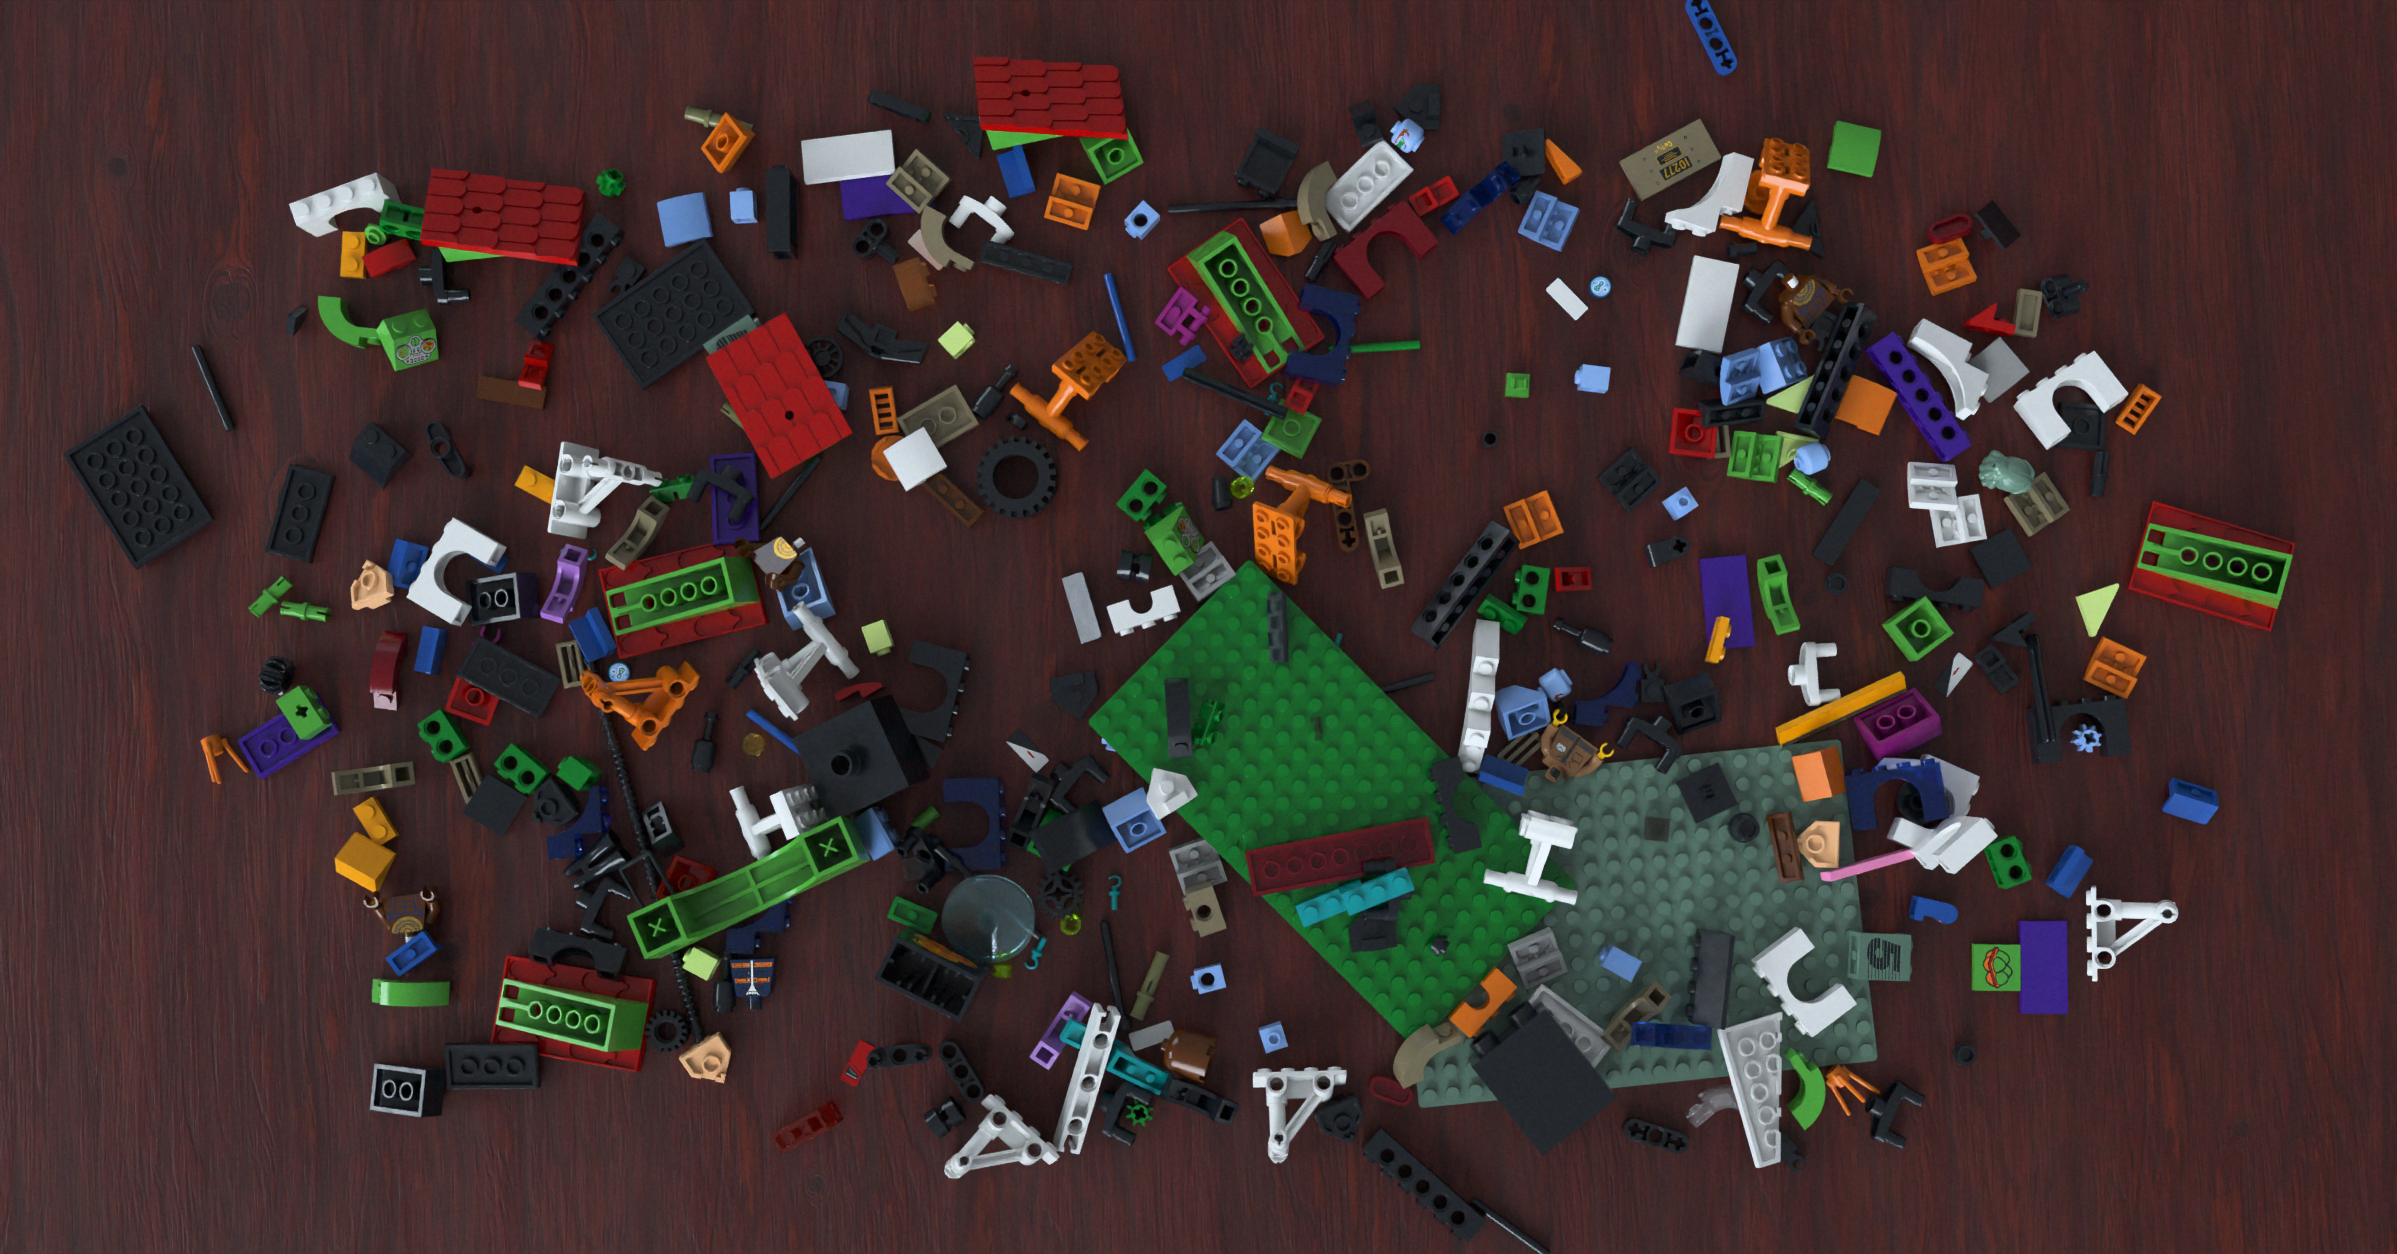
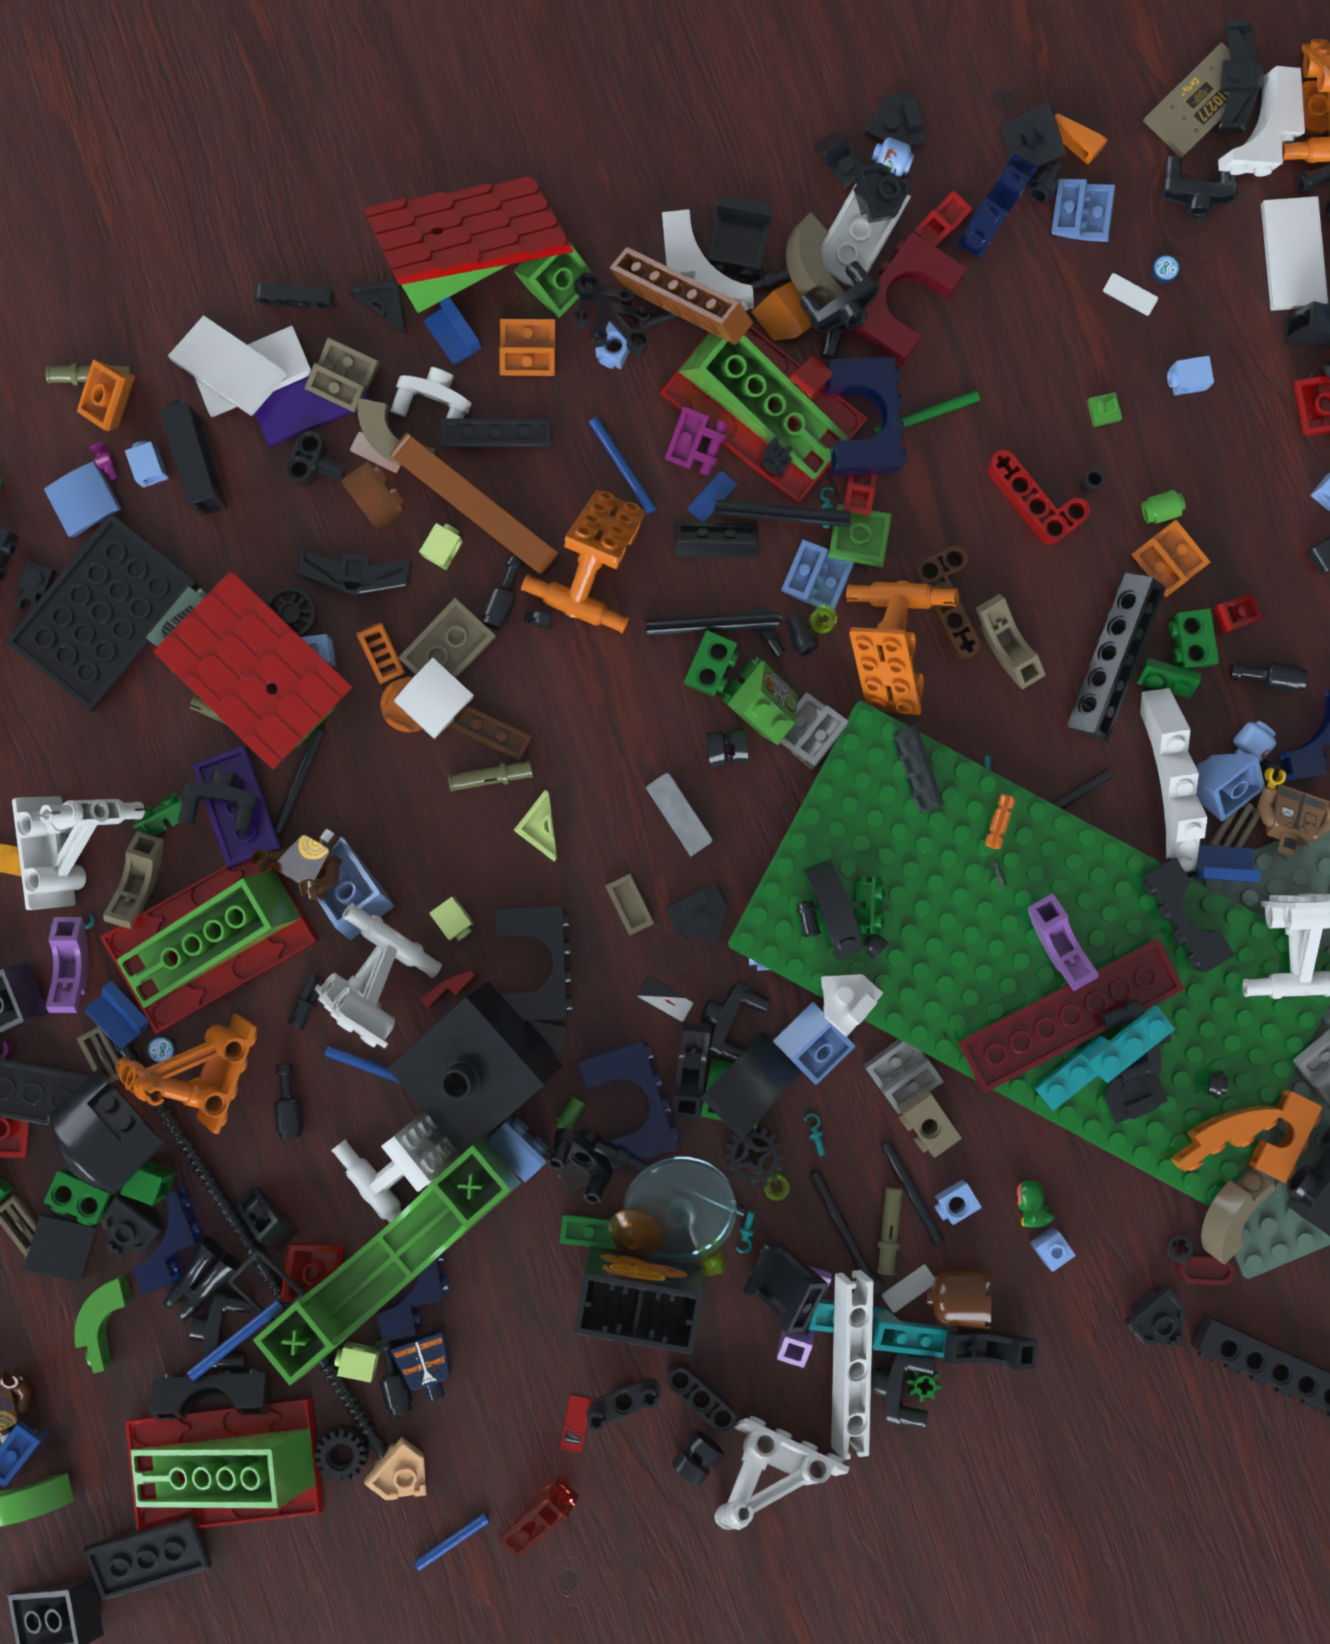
camera: 20 degrees left, 0 degrees up
(504, 868) = (93, 1317): none -> bright green arch
(554, 724) = (102, 1134): none -> black slope
(610, 916) = (235, 1339): none -> blue bar
(711, 193) = (104, 459): none -> magenta piece
(733, 1125) = (451, 1541): none -> blue piece
(754, 744) = (343, 1086): clear yellow tile -> none
(830, 147) = (227, 365): none -> white tile
(942, 533) = (499, 774): none -> olive pin
(948, 925) = (635, 1232): none -> clear orange dish
(968, 584) = (538, 826): none -> yellowish green tile
(992, 314) = (473, 503): none -> dark orange beam
(1021, 667) = (629, 904): none -> dark tan tile
(1037, 499) = (567, 720): black tyre -> none
(1053, 1002) = (786, 1286): none -> black panel
(1125, 619) = (774, 783): white arch -> none
(1145, 193) = (588, 288): none -> black plant
(1153, 464) = (713, 623): none -> black axle
(1156, 719) = (808, 917): none -> black pin
(1176, 398) = (716, 540): none -> black slope
(1176, 960) = (912, 1192): none -> black bar
(1192, 473) = (768, 633): none -> black plate
(1202, 199) = (682, 295): none -> dark orange brick
(1202, 755) = (875, 945): none -> black hinge
(1217, 174) = (686, 258): none -> white arch
(1267, 995) = (1031, 1202): none -> green animal
(1287, 293) = (811, 377): none -> red slope
(1294, 1086) = (1097, 1301): white plate -> none
(1331, 688) = (1000, 821): none -> orange axle
(1333, 245) = (846, 308): none -> black connector
(1349, 796) = (1060, 943): none -> medium lavender arch
(1374, 1060) = (1184, 1258): none -> black bush
(1388, 160) = (879, 192): none -> black plate
(1438, 436) = (1034, 494): none -> red beam
(1444, 983) = (1234, 1127): none -> orange slope
(1539, 477) = (1163, 507): none -> bright green brick
(1629, 479) = (1266, 480): black slope -> none
(1705, 151) = (1240, 76): none -> black plate

